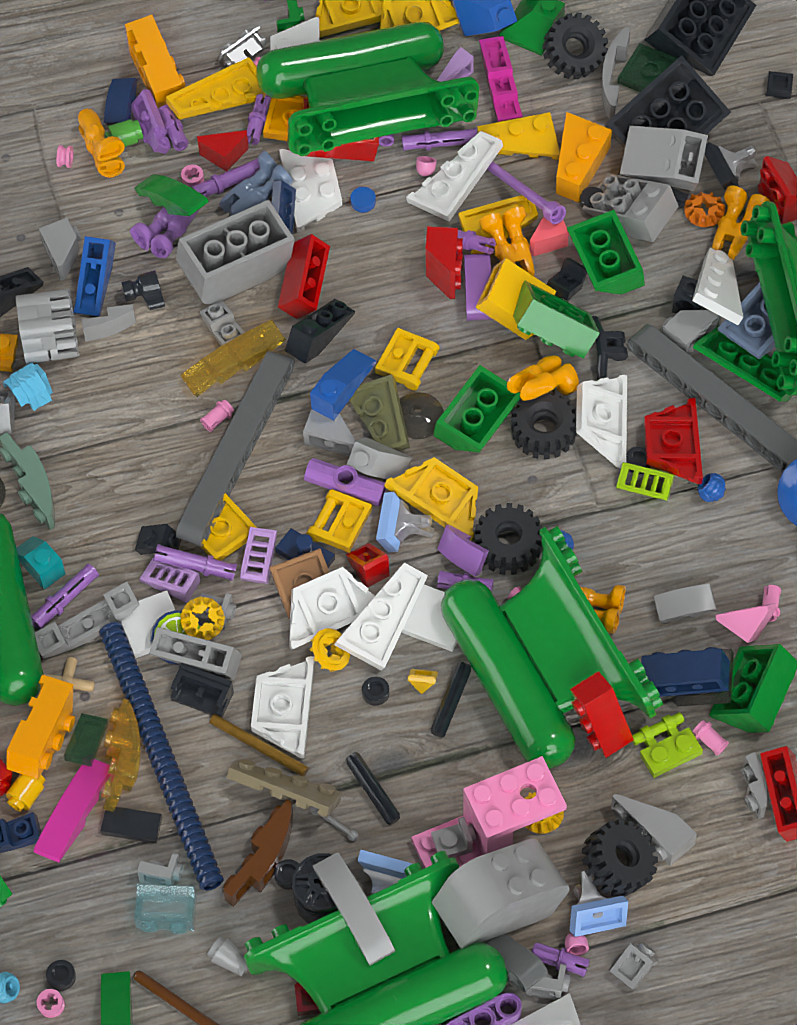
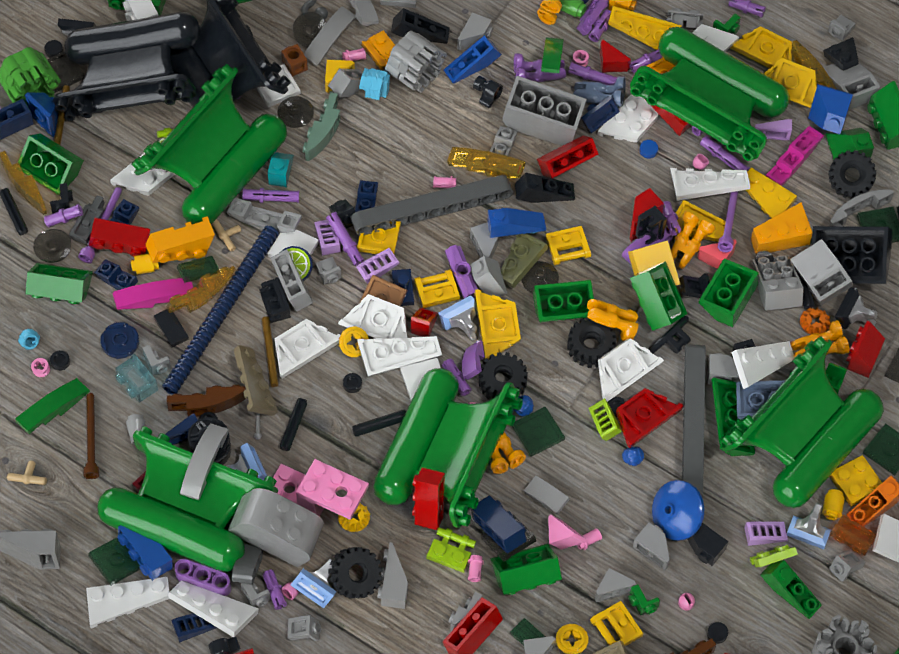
camera: 45 degrees right, 0 degrees up
(96, 891) = (119, 340): none -> dark blue tile
(118, 319) = (452, 91): light grey slope -> none
(159, 504) = (366, 195): none -> dark blue slope
(198, 606) = (320, 269): yellow gear -> none
(280, 902) = (180, 432): none -> dark blue slope
(422, 679) = (379, 399): yellow slope -> none
(455, 840) = (290, 482): light grey bracket -> none
(473, 258) = (651, 223): none -> black hinge
(602, 554) = (538, 431): none -> clear green tile

